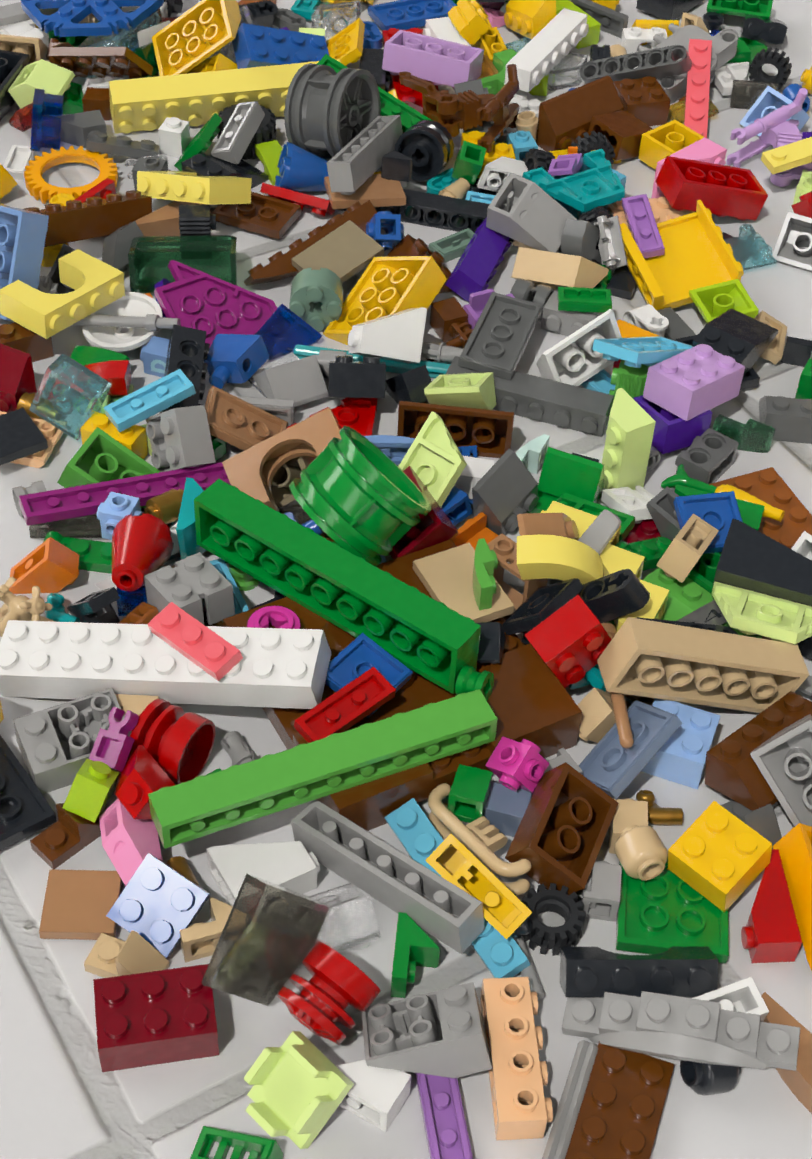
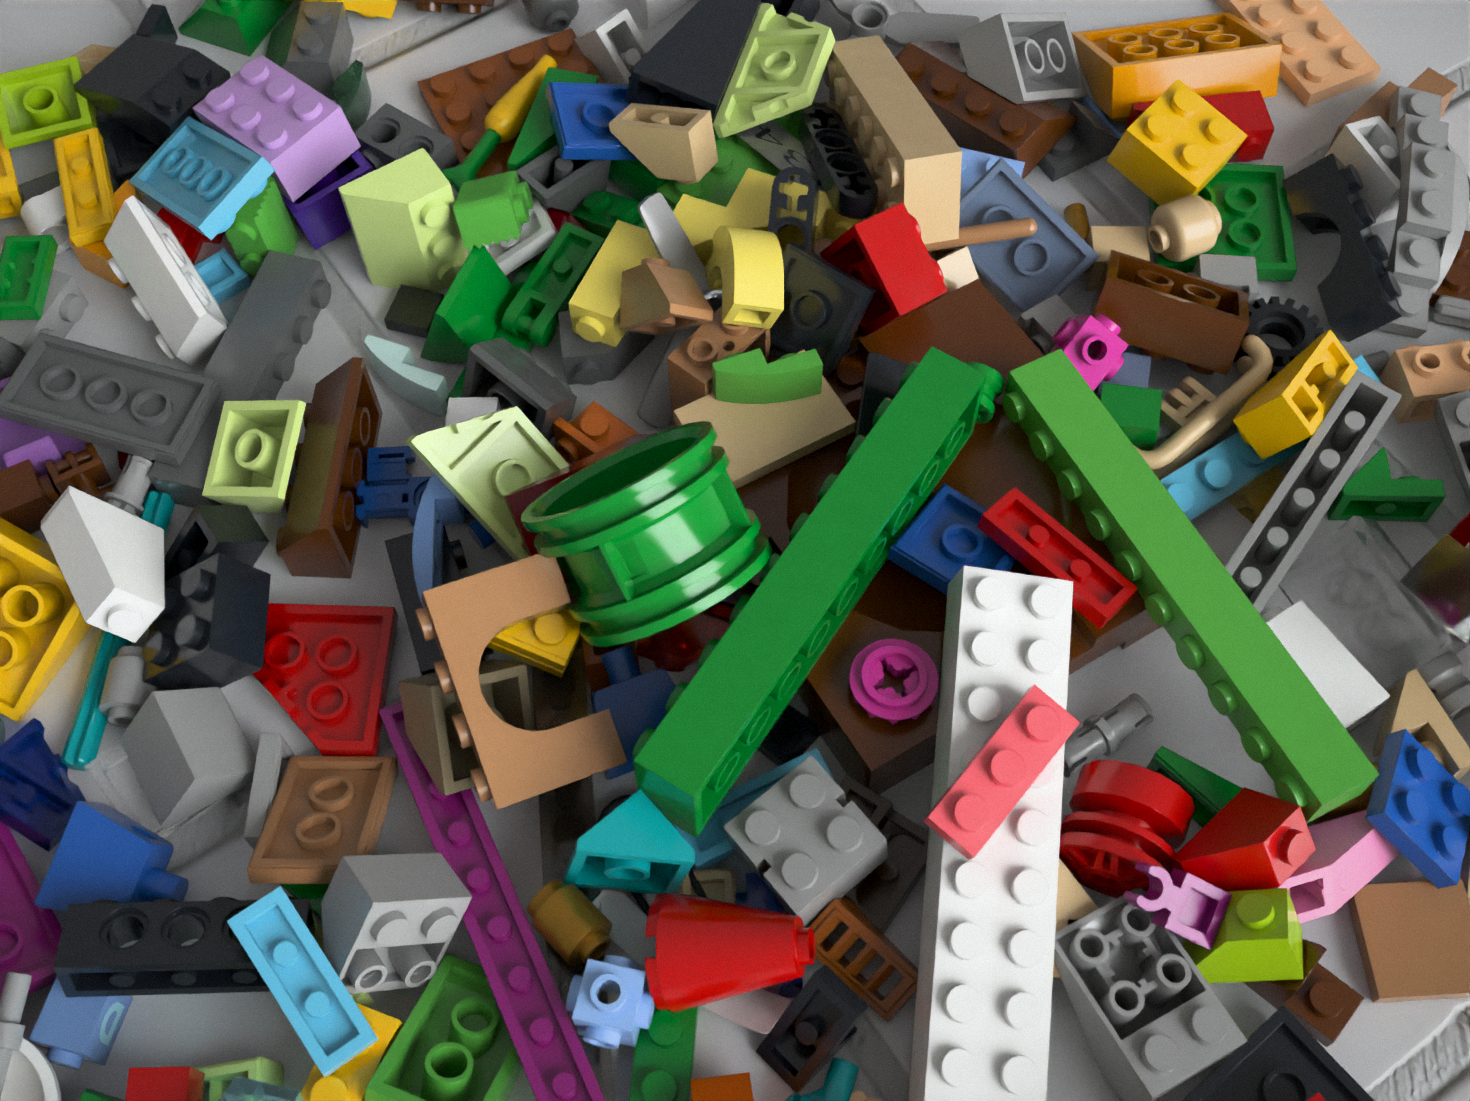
camera: 90 degrees left, 15 degrees up
(630, 471) = (492, 209): none -> bright green brick
(656, 320) = (85, 186): none -> yellow tile

